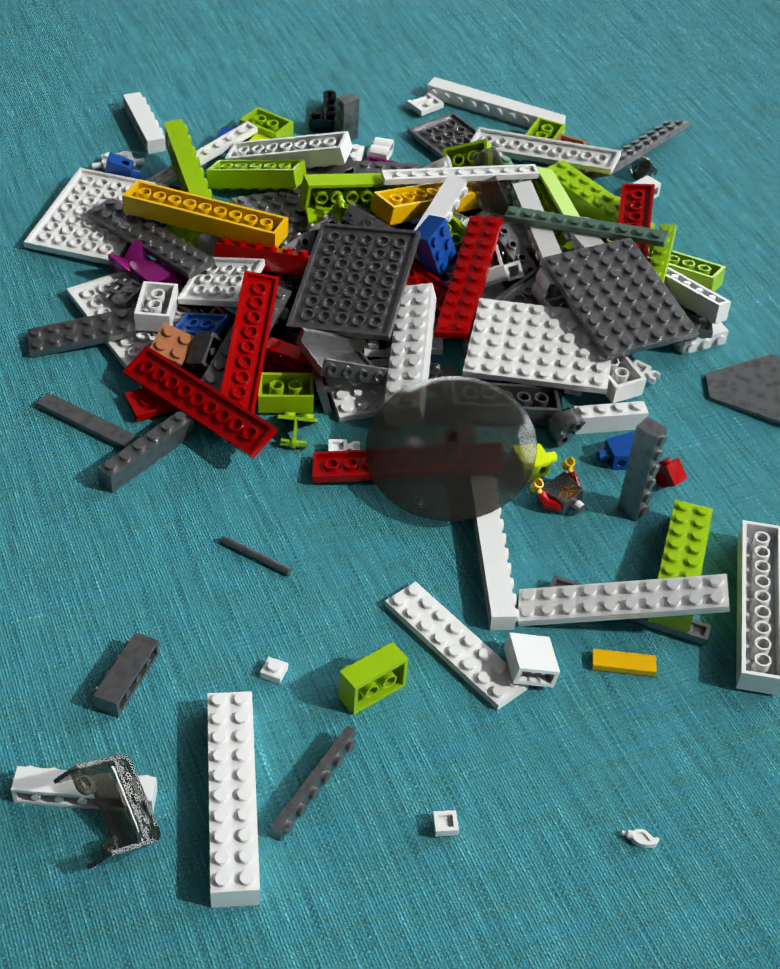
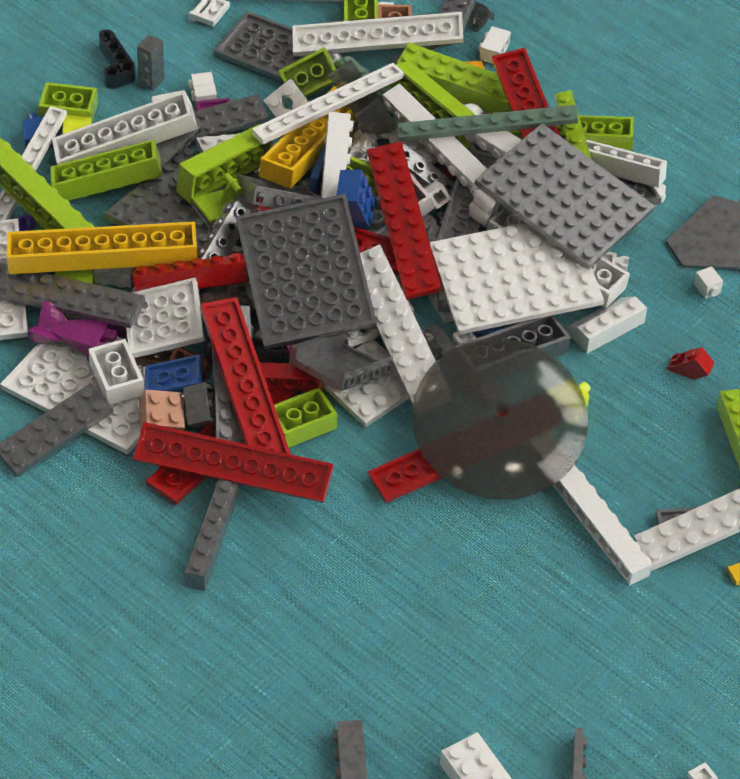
camera: 25 degrees left, 5 degrees up
(86, 421) = (126, 525): flat silver tile -> none
(123, 292) = (72, 365): flat silver plate -> none
(256, 555) = (382, 599): flat silver bar -> none
(274, 670) = (473, 703): white plate -> none
(293, 443) = (333, 441): lime plate -> none
(322, 389) = (336, 401): flat silver plate -> none
(341, 445) = (388, 454): white plate -> none
(372, 678) = (568, 674): lime brick -> none
(455, 644) = (610, 611): white plate -> none
(531, 660) = (687, 600): white brick -> none
(562, 492) = (615, 421): torso -> none
(564, 423) = (579, 350): flat silver cylinder -> none
(617, 451) = (643, 358): blue torso -> none
(642, 468) = (688, 377): flat silver brick -> none
(723, 416) = (708, 282): none -> white brick

